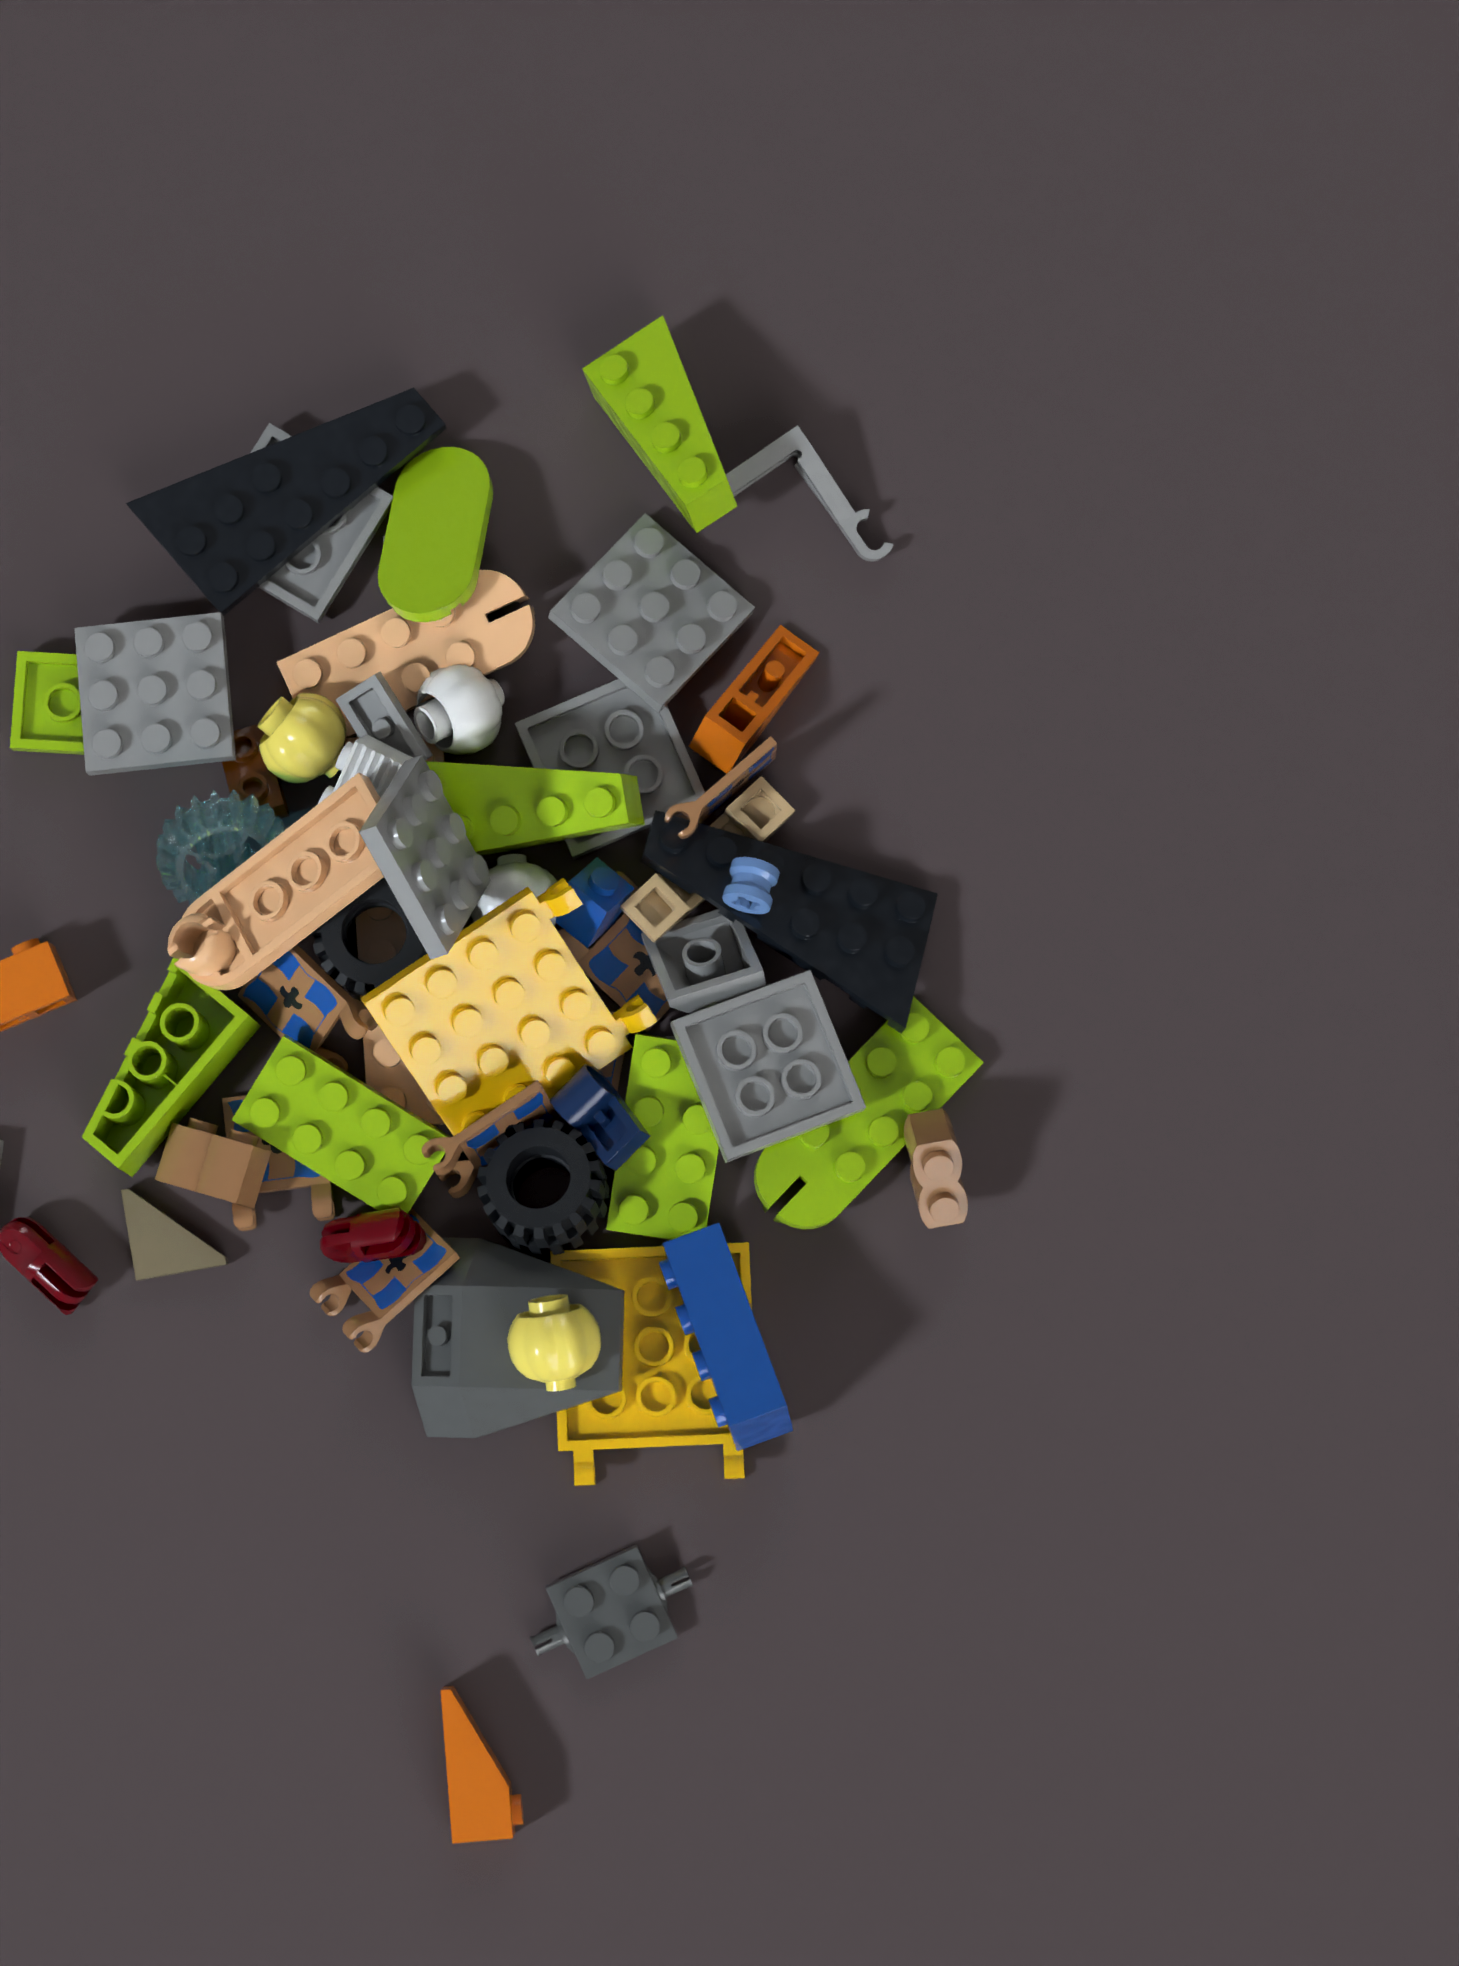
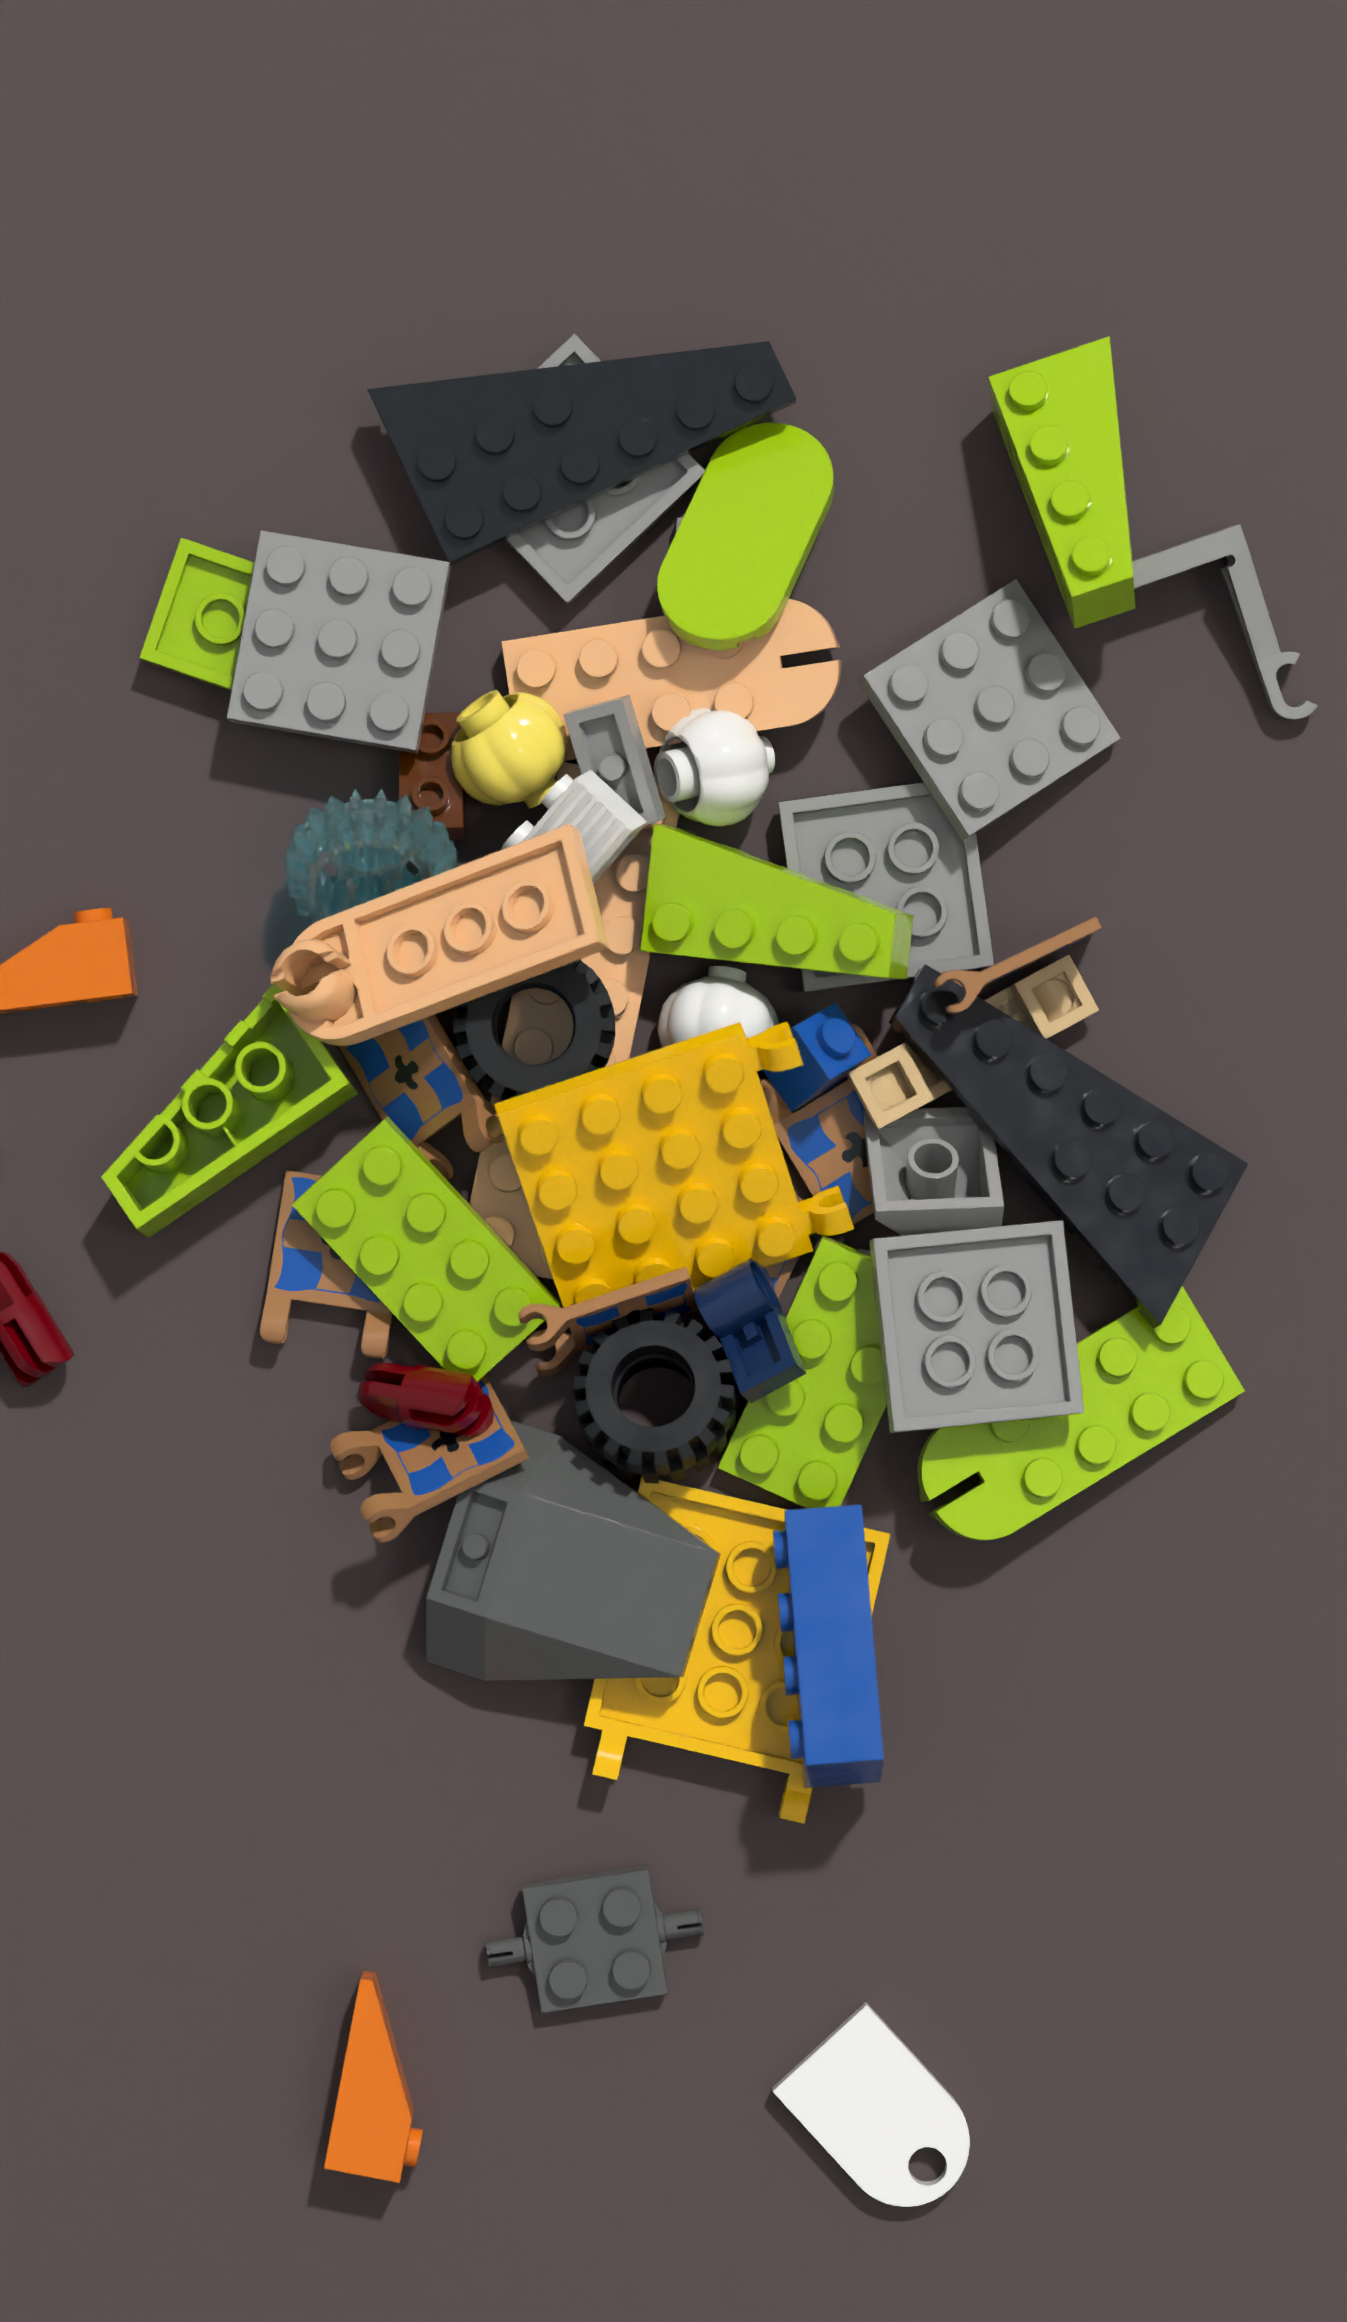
camera: 20 degrees right, 5 degrees up
(162, 1244) = (163, 1331): dark tan tile -> none
(213, 1164) = (254, 1253): medium nougat brick -> none
(426, 856) = (625, 954): light grey plate -> none
(554, 1341) = (618, 1597): light yellow plant -> none
(750, 885) = (1018, 1095): medium blue wheel -> none
(753, 699) = (1086, 854): orange slope -> none
(859, 1681) = (876, 2108): none -> white tile
(935, 1168) = (1148, 1510): medium nougat brick -> none

